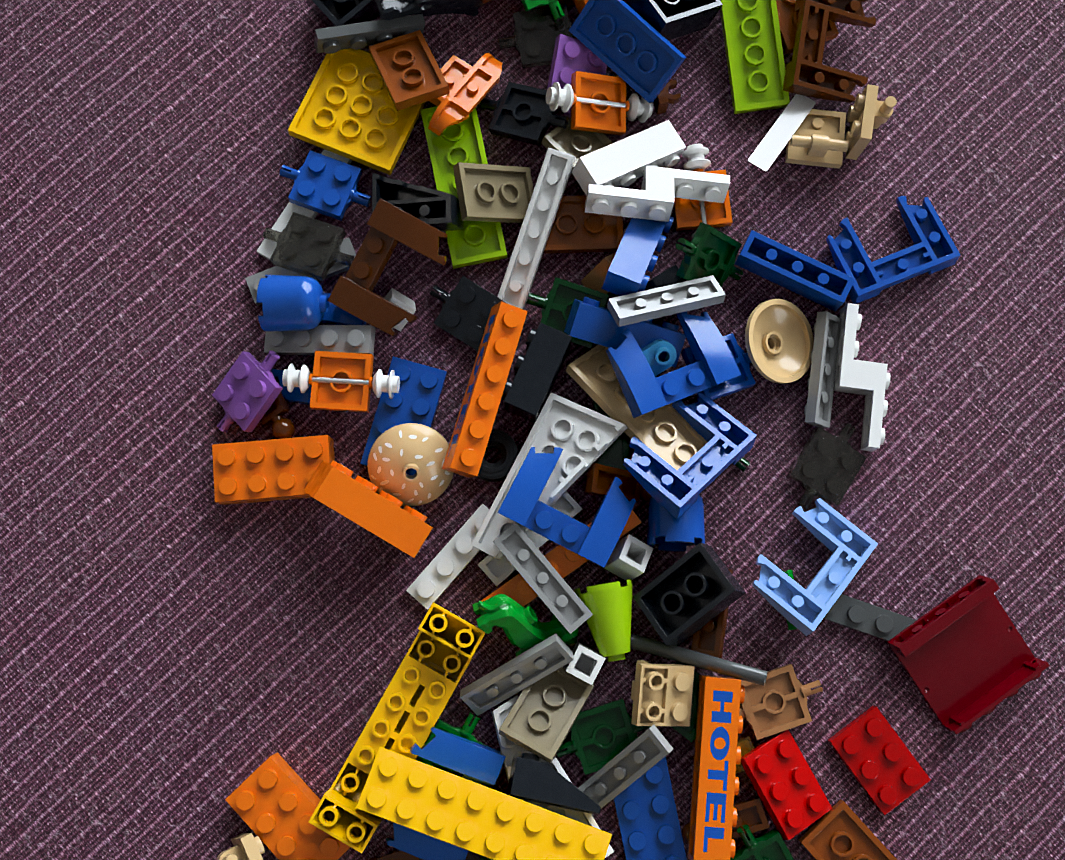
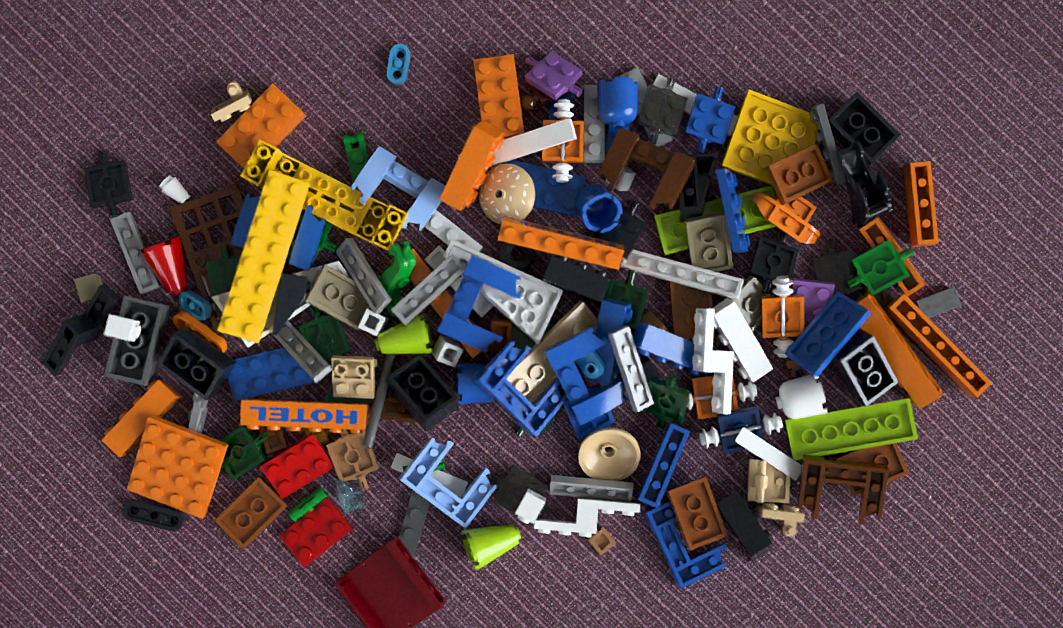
camera: 90 degrees right, 5 degrees up
(213, 613) = (398, 65): none -> dark azure plate
(339, 420) = (535, 141): none -> white tile
(350, 676) = (356, 157): none -> green plate
(360, 639) = (383, 166): none -> light blue wedge
(438, 337) = (598, 208): none -> blue cylinder
(441, 156) = (731, 204): none -> blue plate
(708, 84) = (801, 397): none -> white cylinder
(745, 177) = (732, 424): none -> dark blue plate
(810, 564) = (452, 483): none -> white sticker
(836, 708) = (349, 500): none -> clear light blue bracket
(850, 450) = (530, 506): none -> white brick
(850, 786) = (307, 503): none -> green pin
(860, 229) = (697, 513): none -> dark orange plate
(876, 167) = (745, 525): none -> black wedge
(895, 357) = (601, 541): none -> medium nougat tile
(898, 512) = (489, 543): none -> lime cone

